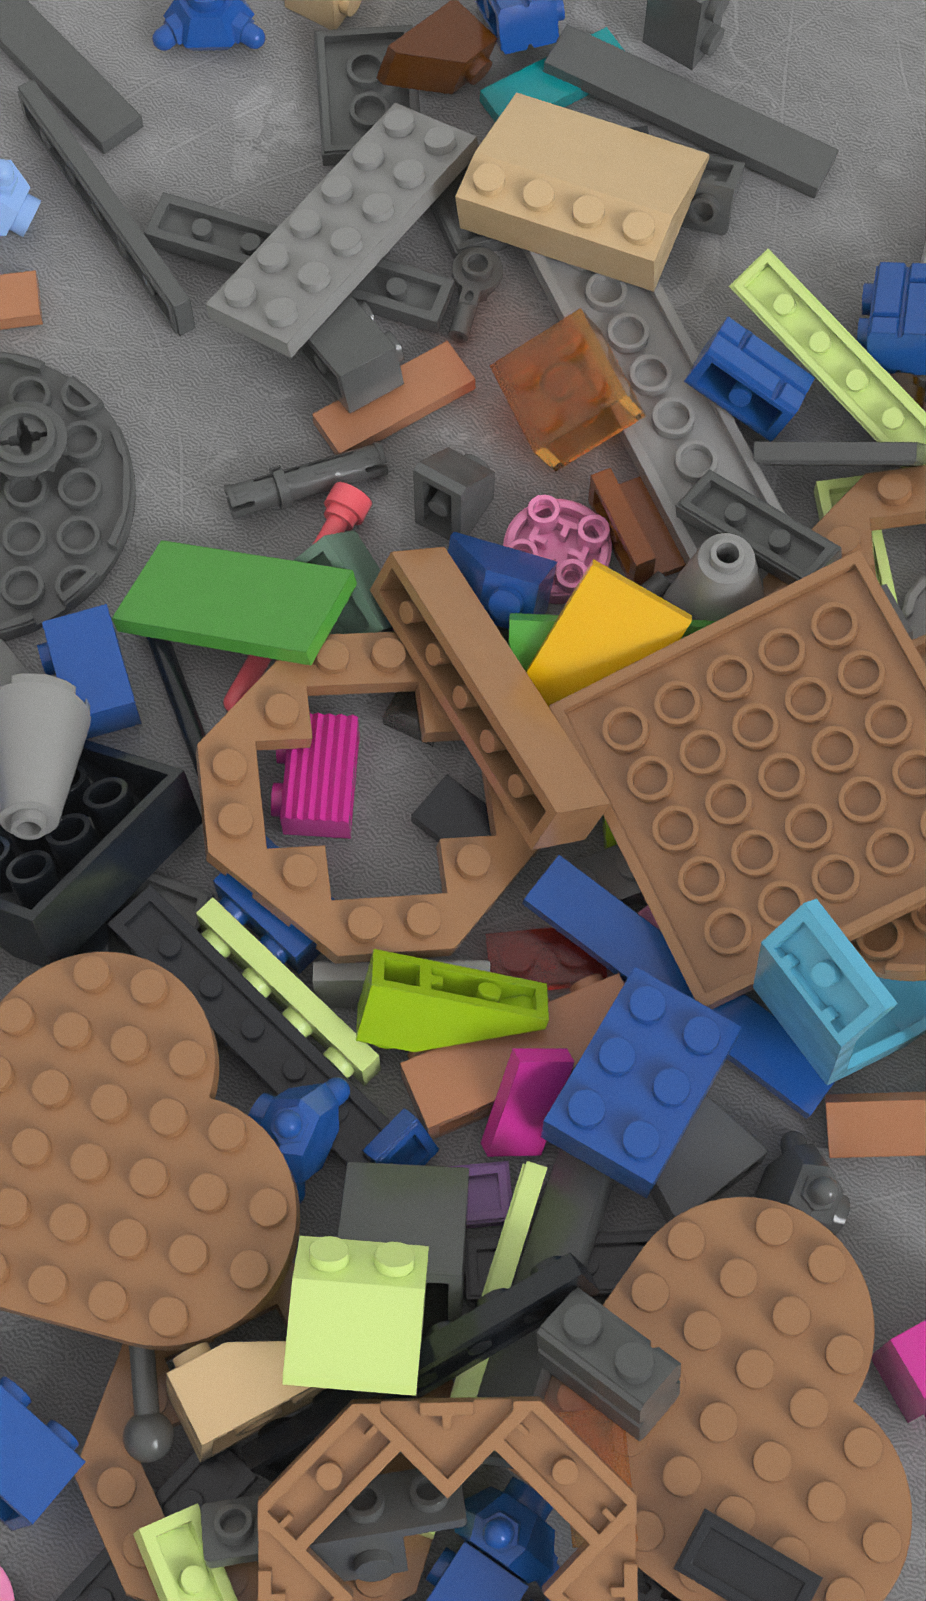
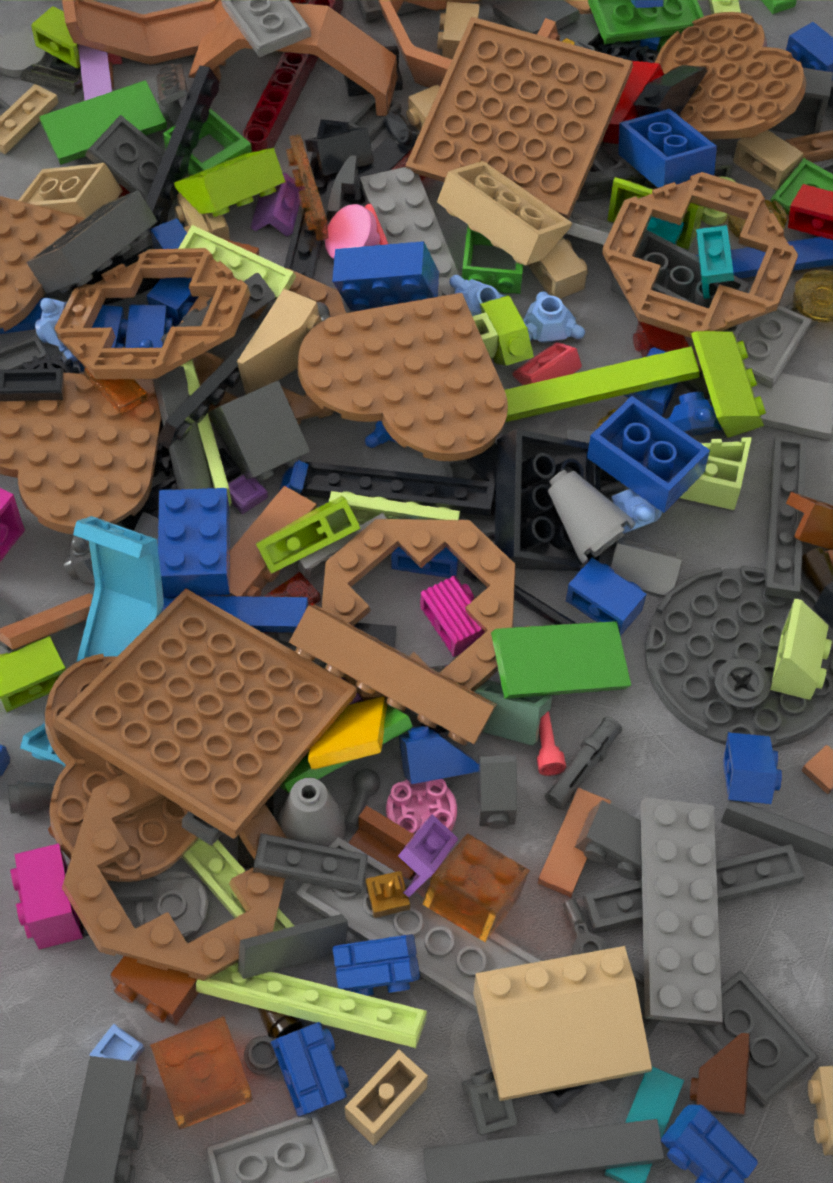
camera: 145 degrees right, 10 degrees down
(116, 327) = (751, 768): none -> blue brick
(303, 1124) = (341, 447): blue rock -> none
(356, 1315) = (251, 356): yellowish green slope -> none
(524, 1099) = (246, 519): dark pink tile -> none
(603, 447) = (427, 851): none -> medium lavender panel
(608, 1363) = (134, 408): dark grey brick -> none
(680, 451) = (387, 894): none -> pearl gold tile
(833, 239) = (386, 1097): none -> tan brick

